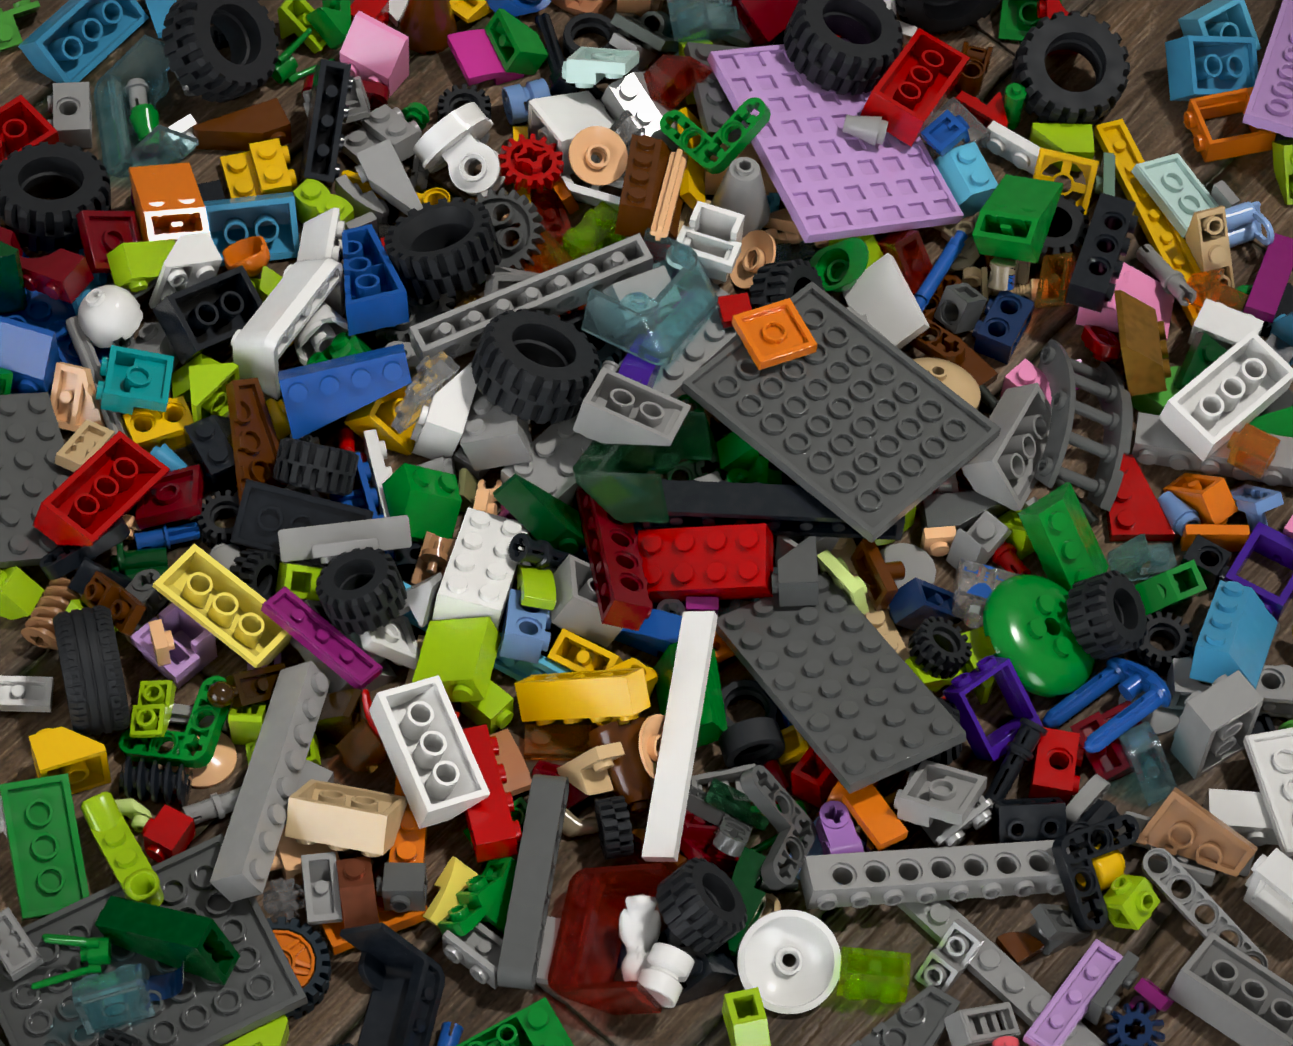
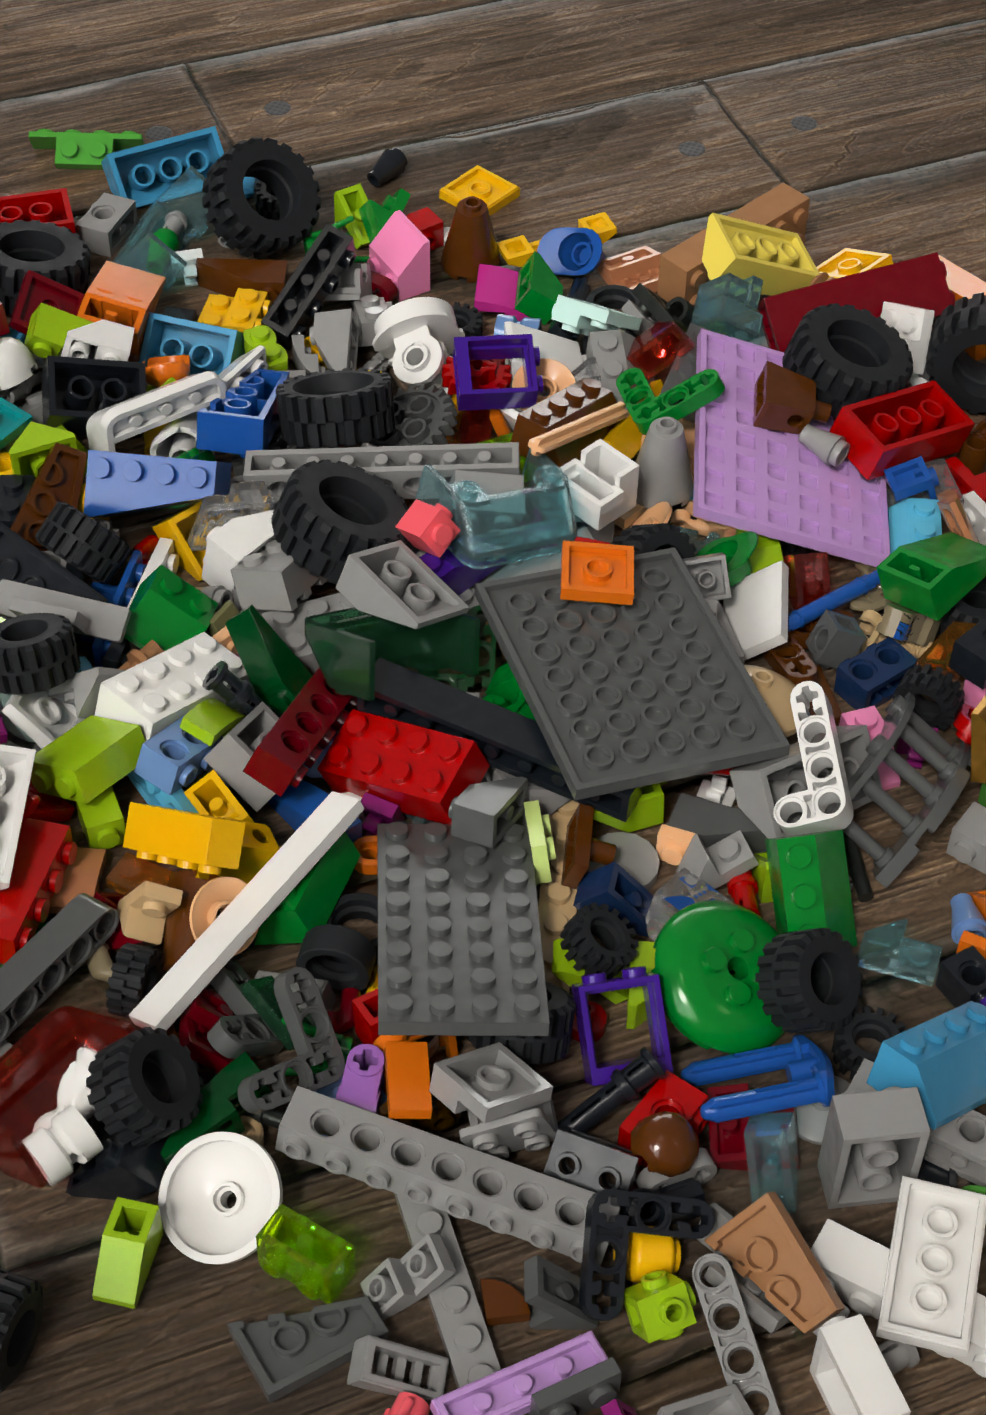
camera: 30 degrees right, 10 degrees down
(535, 175) = (496, 348): none -> dark purple window
(620, 346) = (428, 527): none -> coral brick
(816, 98) = (786, 400): none -> reddish brown torso
(843, 288) = (710, 575): none -> light grey piece
(998, 155) = (955, 515): none -> nougat slope
(1026, 433) = (815, 758): none -> white beam
(1060, 325) = (939, 688): none -> black tyre
(1075, 782) = (666, 1143): none -> reddish brown hair
(1136, 508) = (922, 895): red wing -> none
(1171, 587) = (905, 988): green slope -> none

